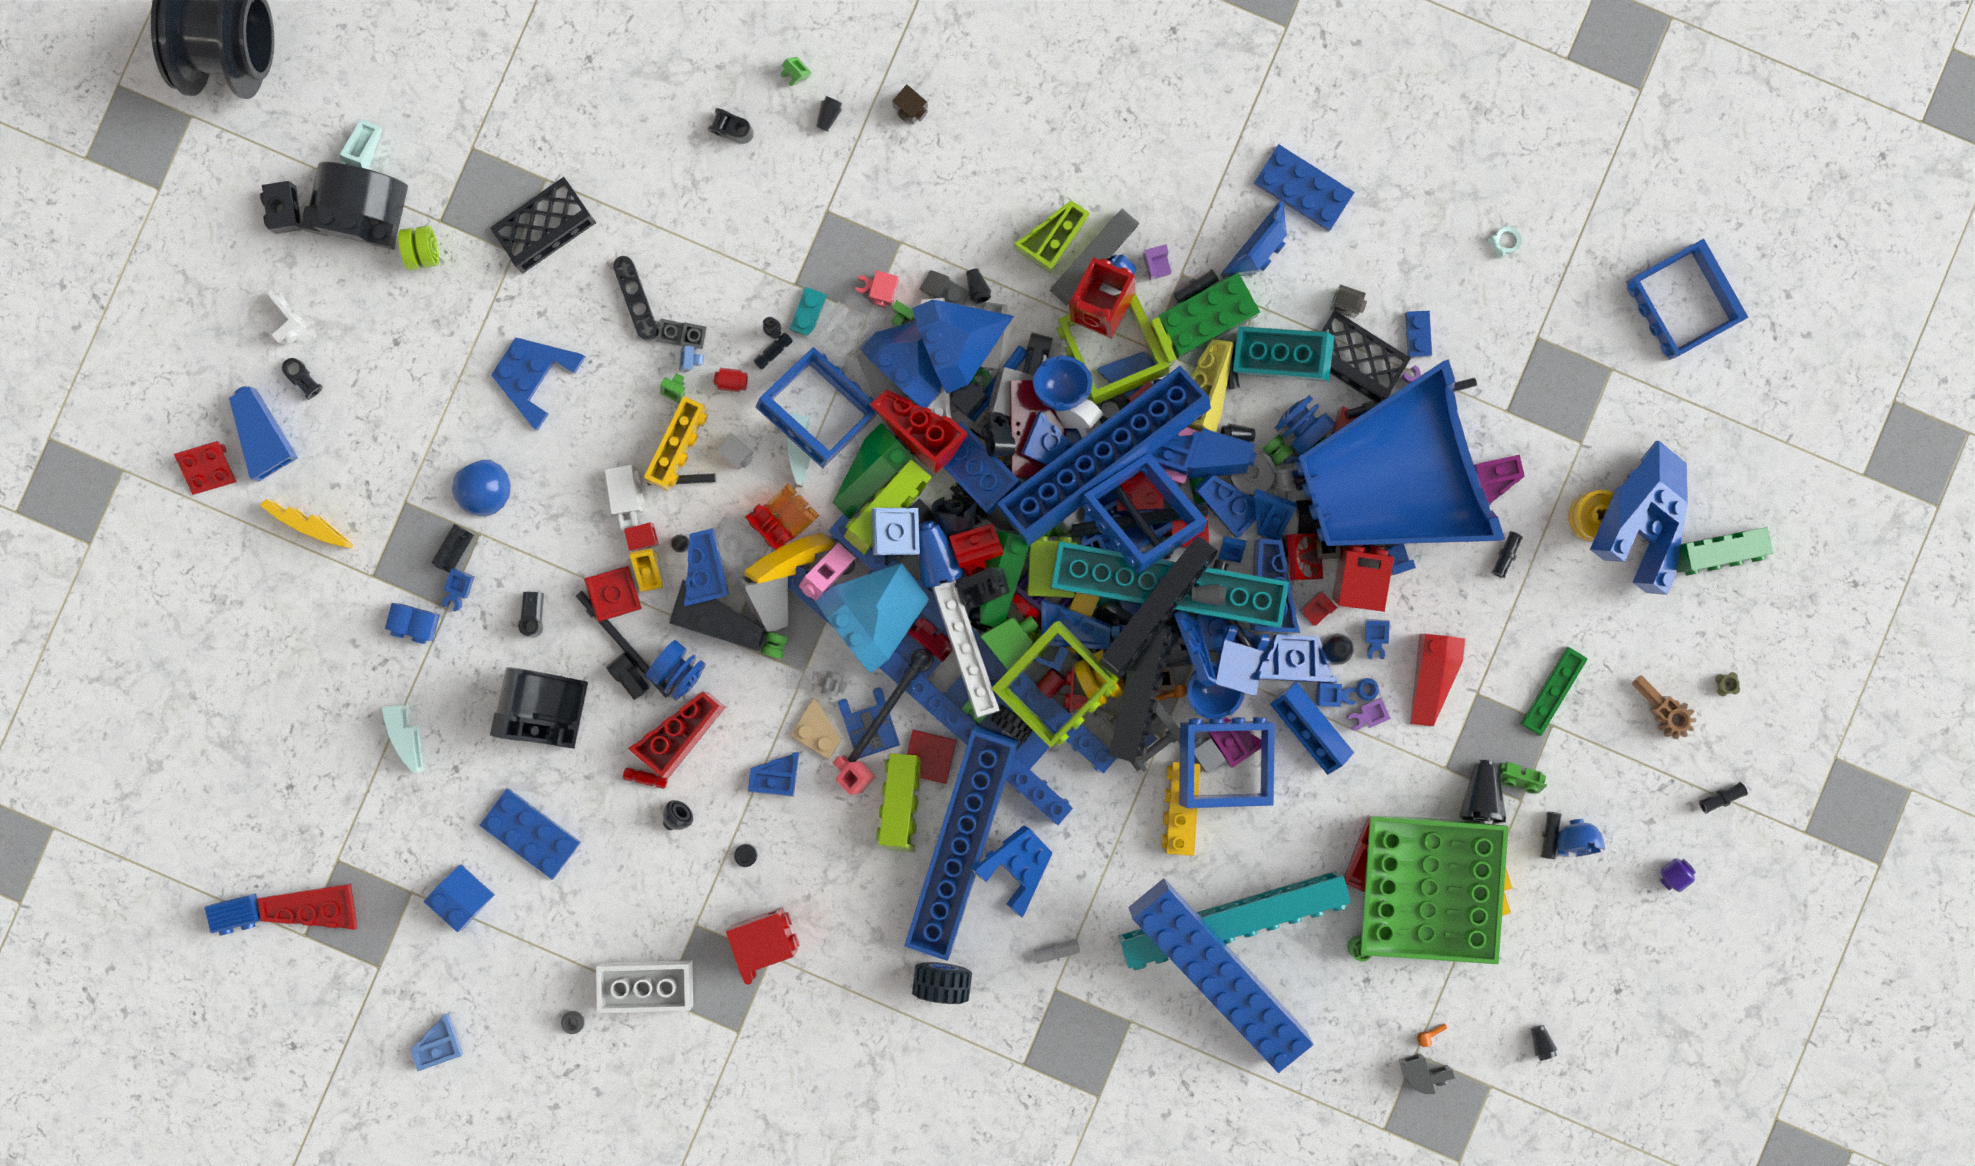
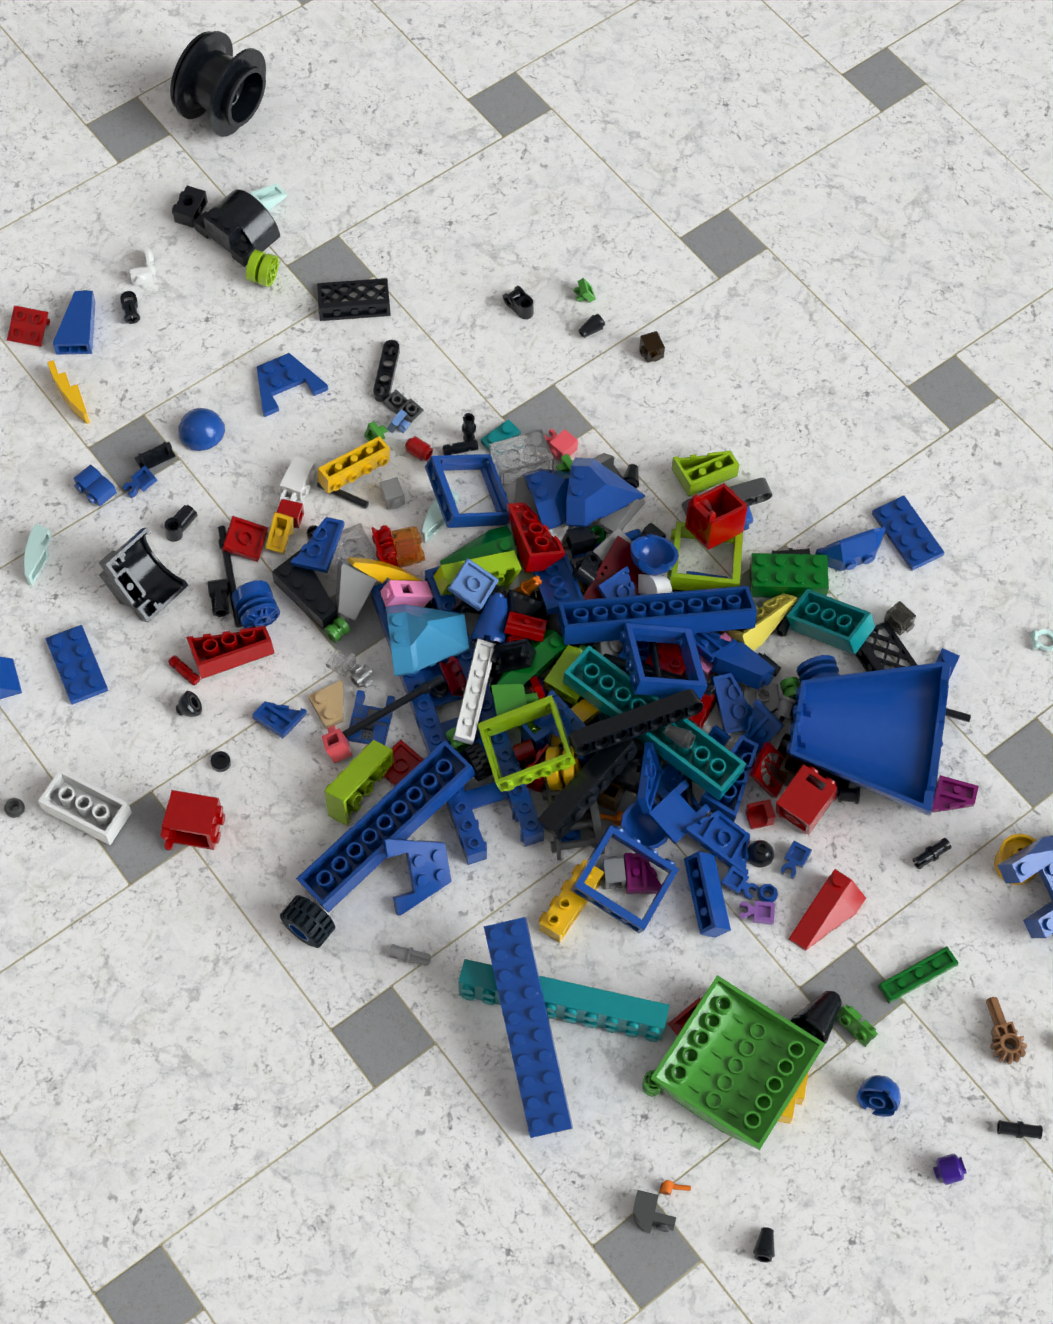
camera: 30 degrees right, 25 degrees down
(944, 488) = (527, 587): none -> orange axle
(1157, 262) = (771, 525): medium lavender panel -> none
(1164, 340) = (746, 572): lime plate -> none
(1401, 561) = (842, 814): blue panel -> none
(1551, 835) = (857, 1080): black pin -> none

